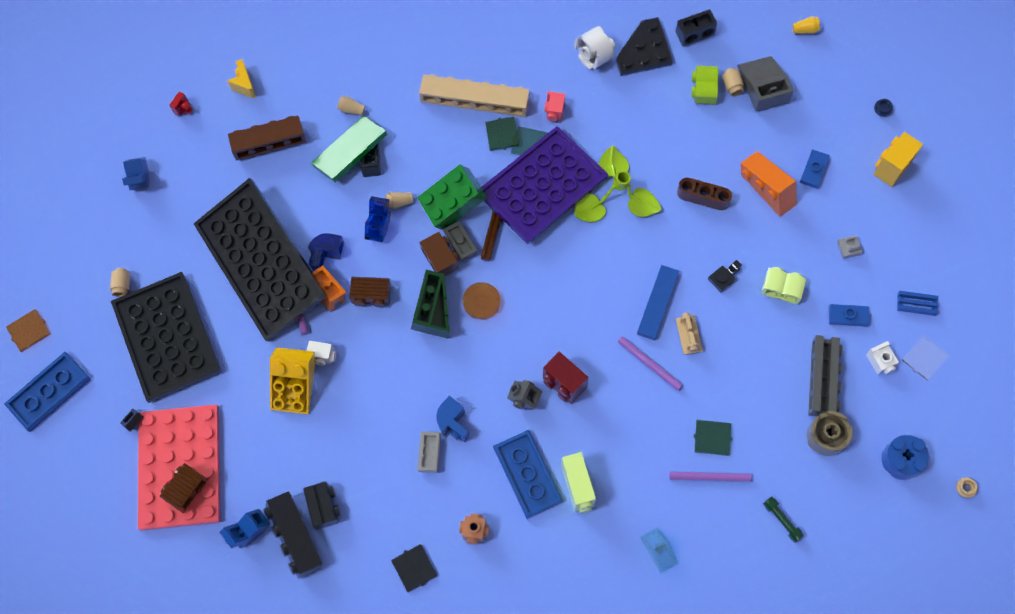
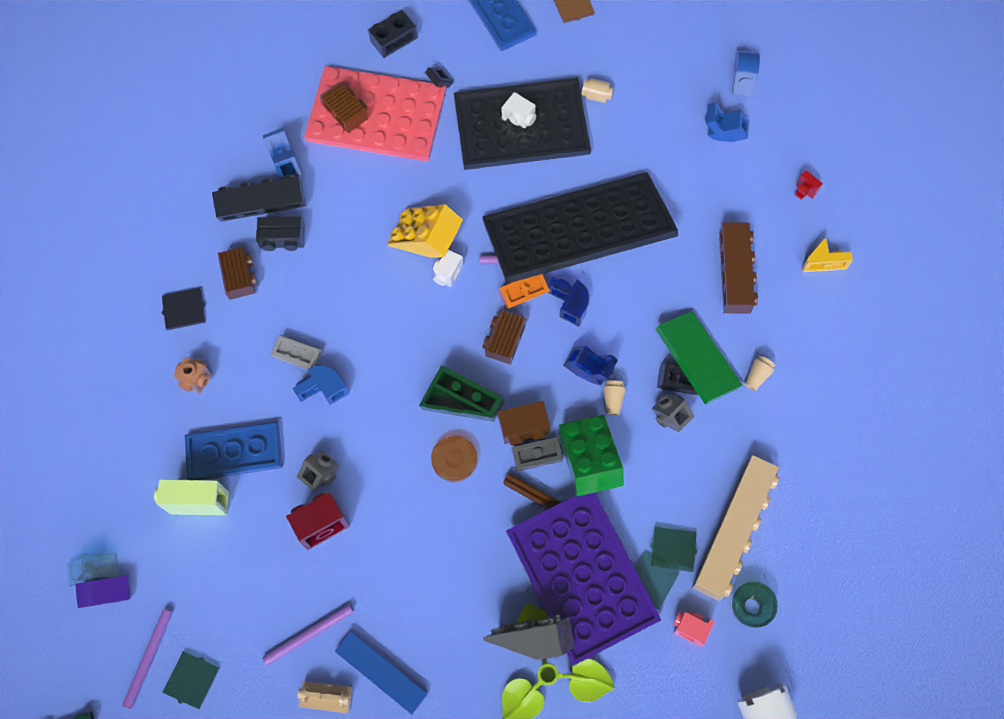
camera: 105 degrees right, 0 degrees up
(76, 168) = (746, 71): none -> brick
(92, 474) = (392, 33): none -> black brick
(158, 334) = (519, 111): none -> white brick
(369, 529) = (236, 273): none -> reddish brown brick
(400, 154) = (672, 412): none -> dark grey brick
(526, 65) = (763, 596): none -> piece
(600, 194) = (536, 640): none -> dark grey slope
(674, 530) = (102, 591): none -> dark purple slope

